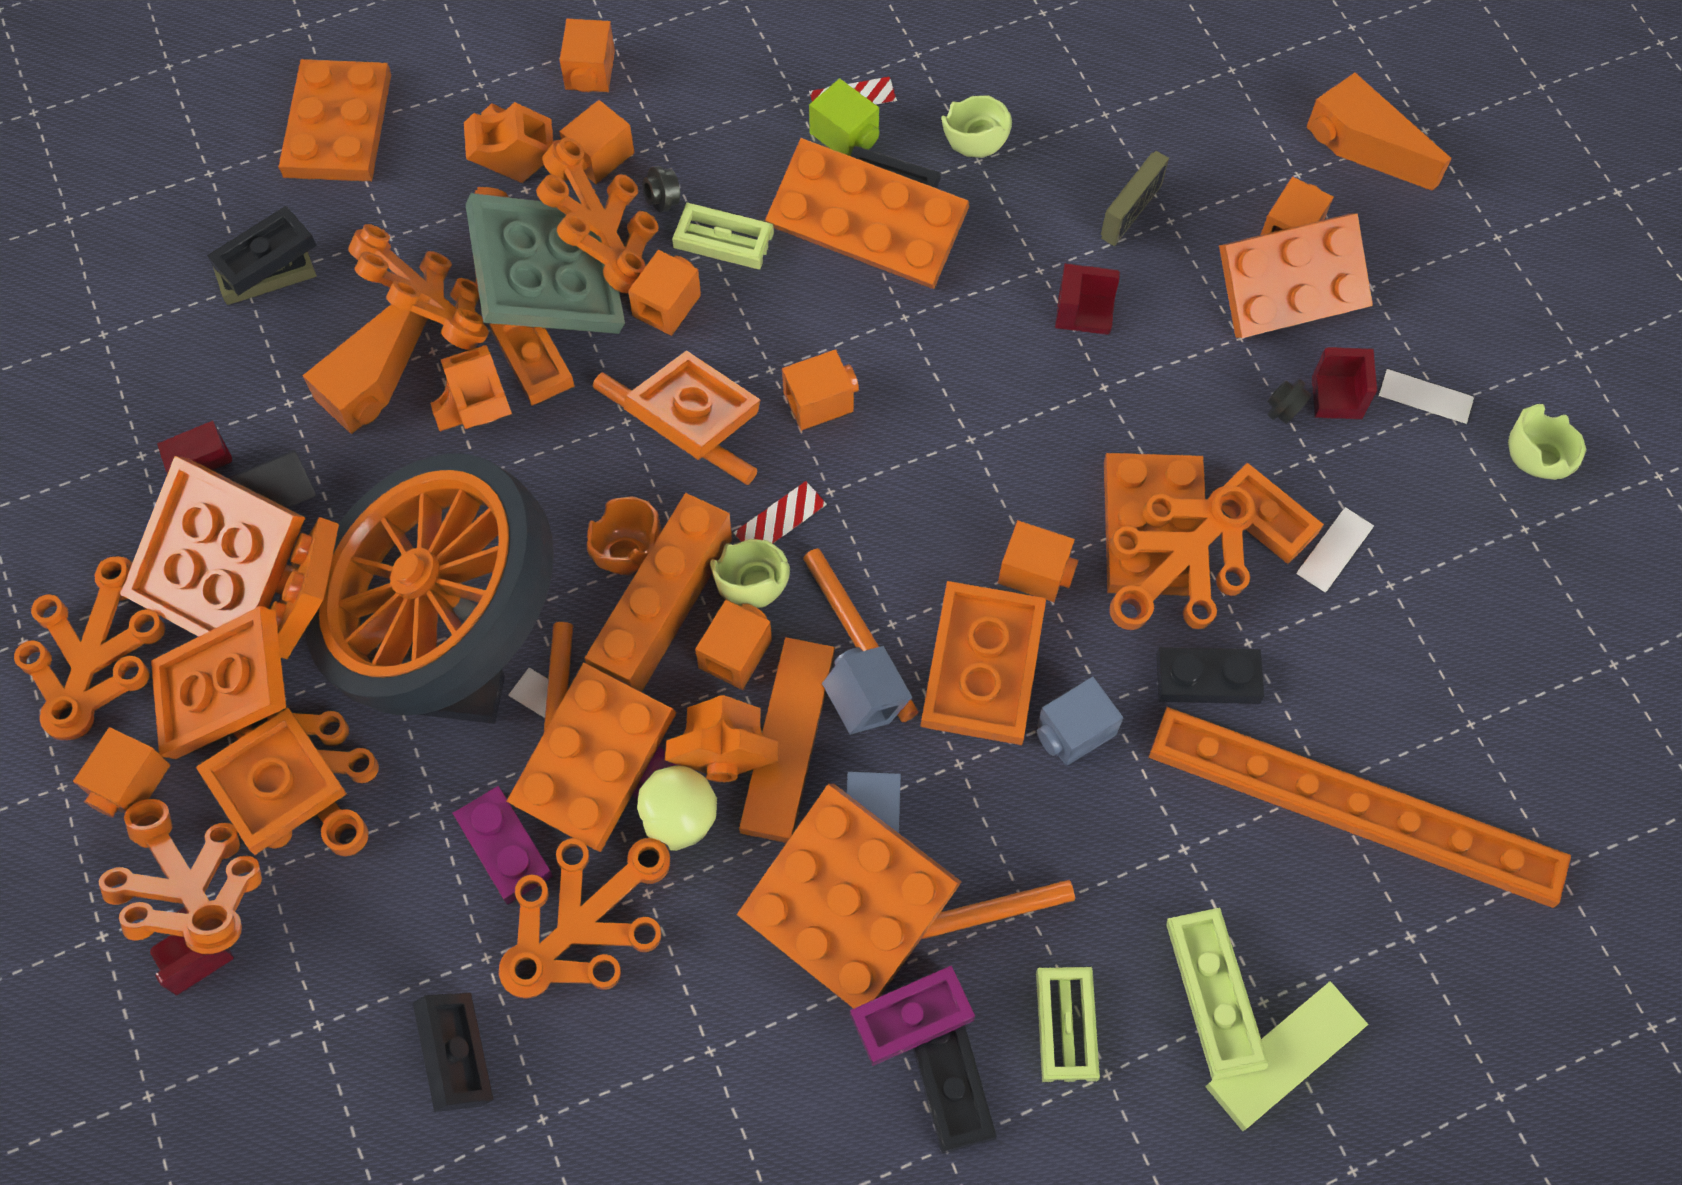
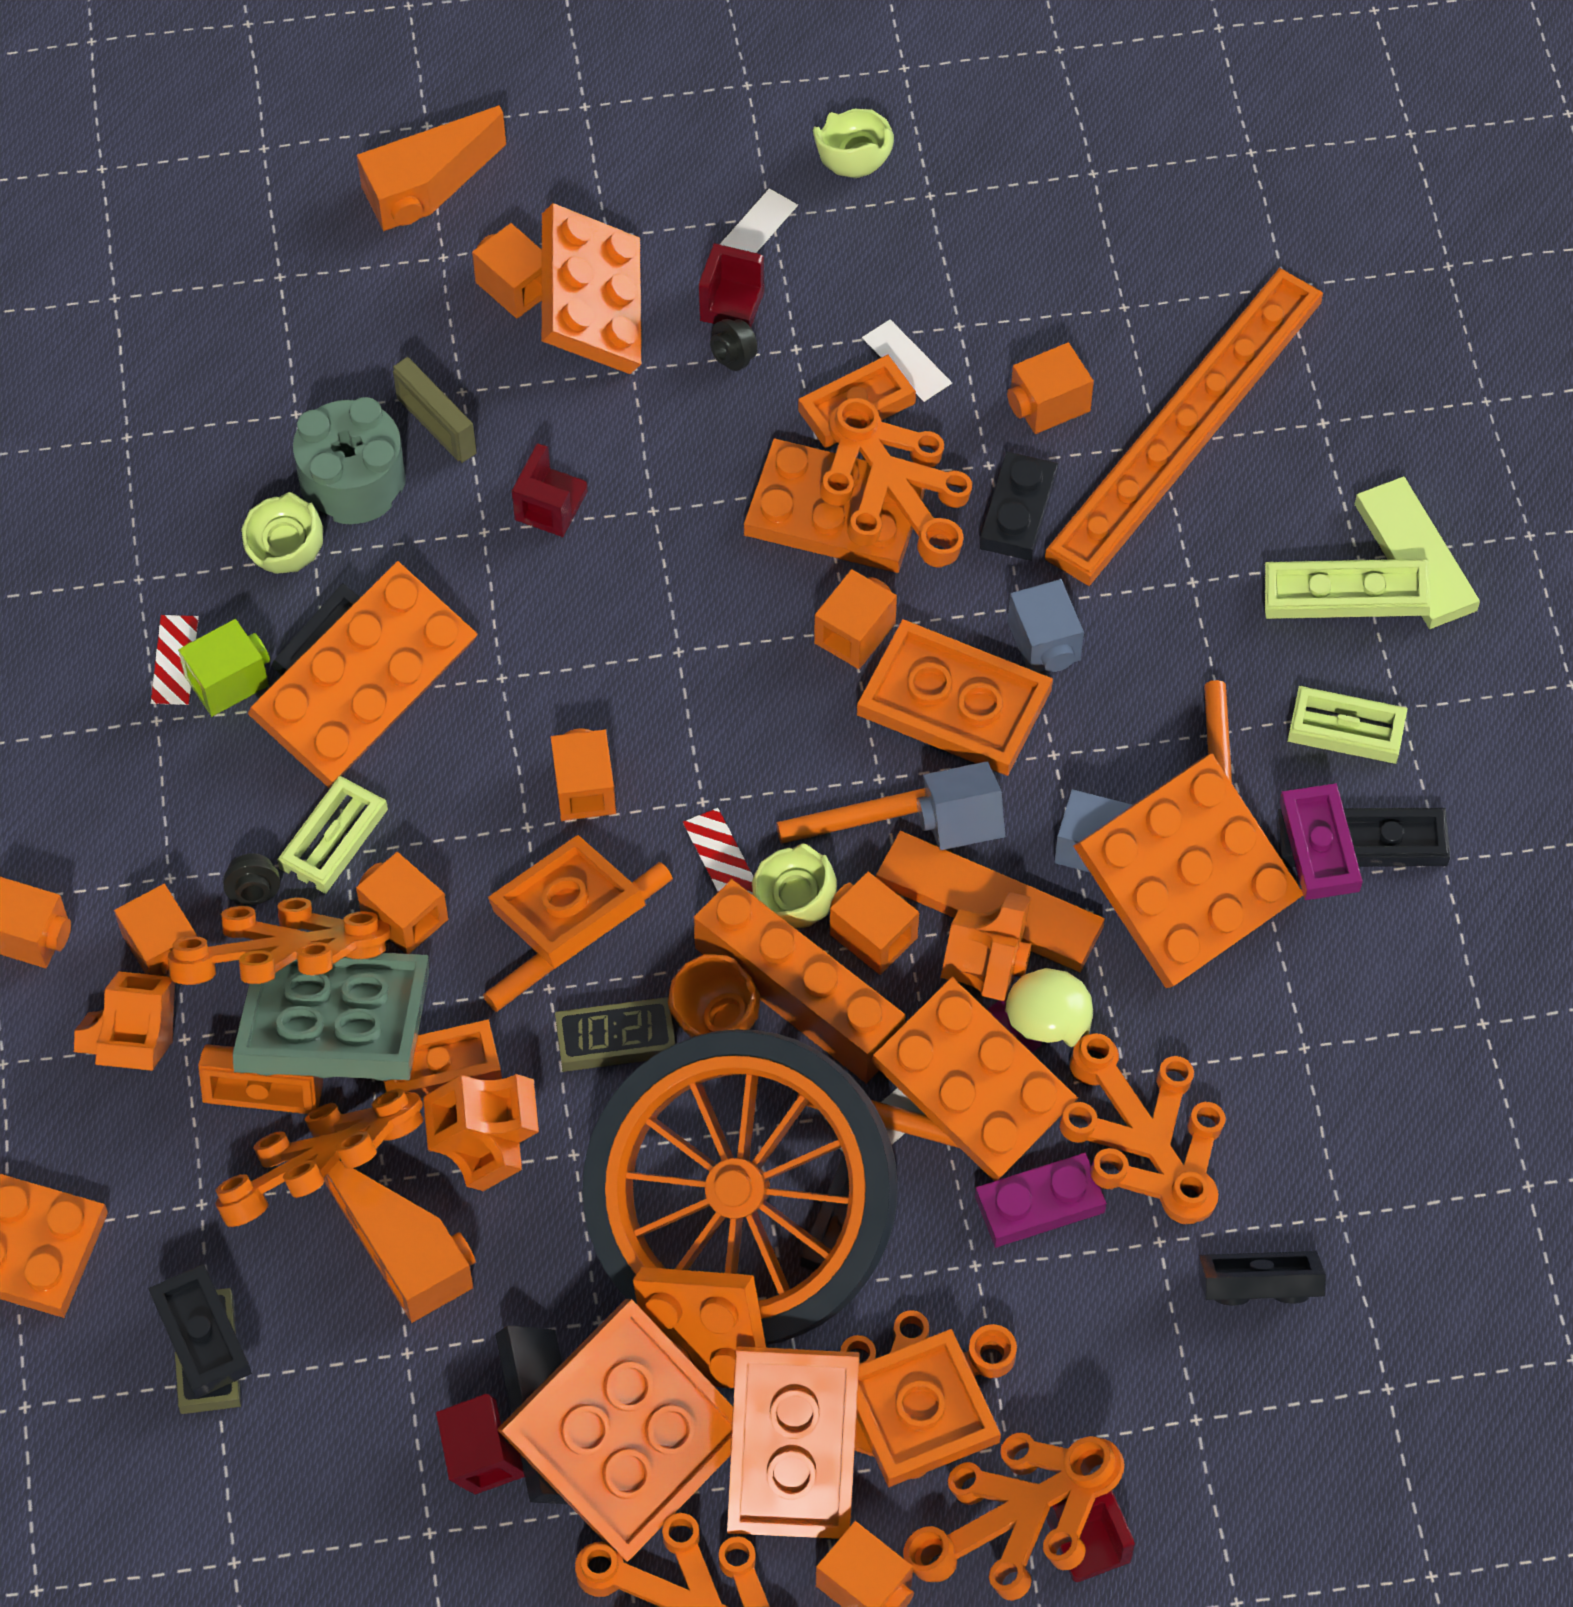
camera: 75 degrees left, 5 degrees down
(587, 472) = (613, 1033): none -> tile
(1061, 149) = (349, 460): none -> sand green brick
(1341, 670) = (1050, 388): none -> orange brick

